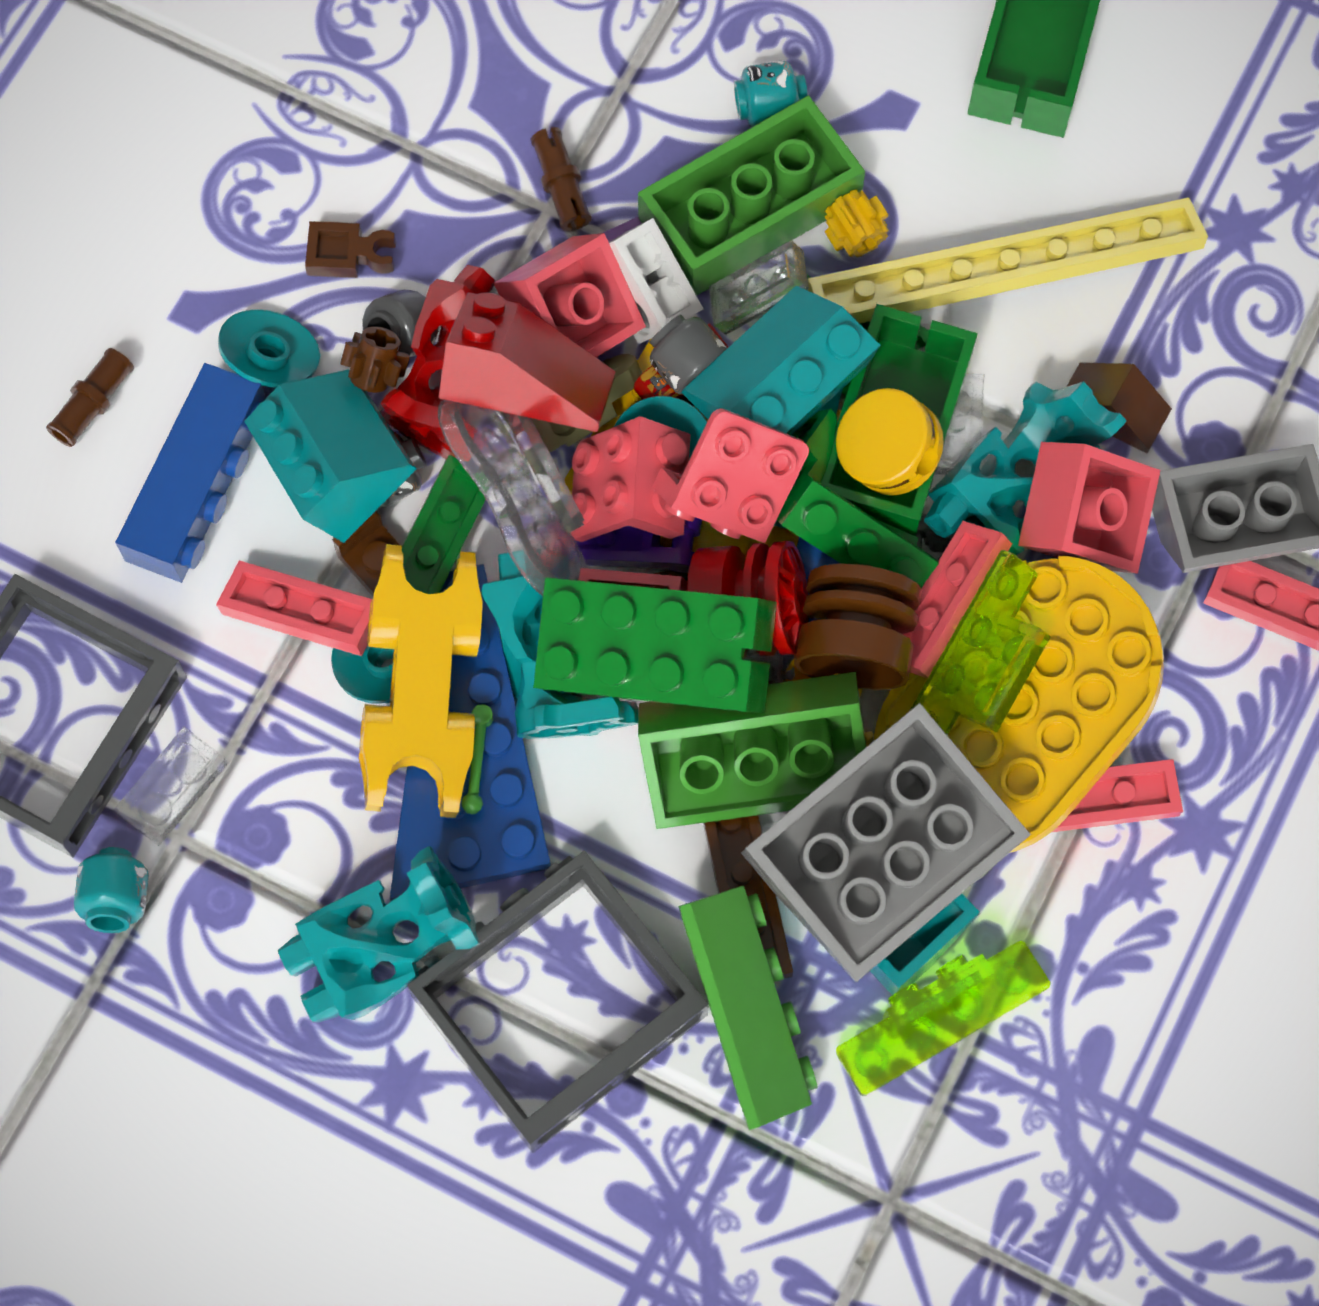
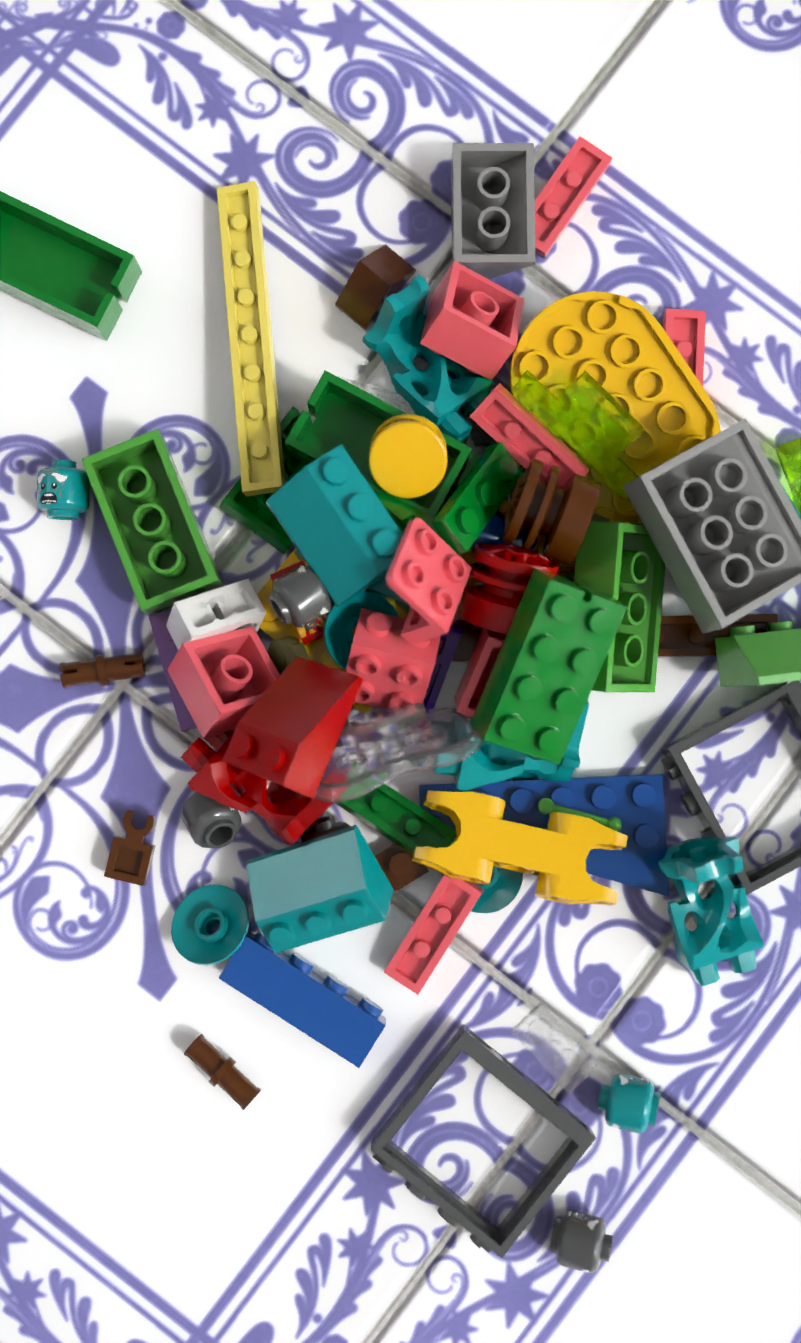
camera: 80 degrees left, 15 degrees up
(374, 359) = (248, 842): reddish brown gear -> none
(757, 287) = (234, 532): clear plate -> none
(856, 223) = (190, 446): yellow gear -> none

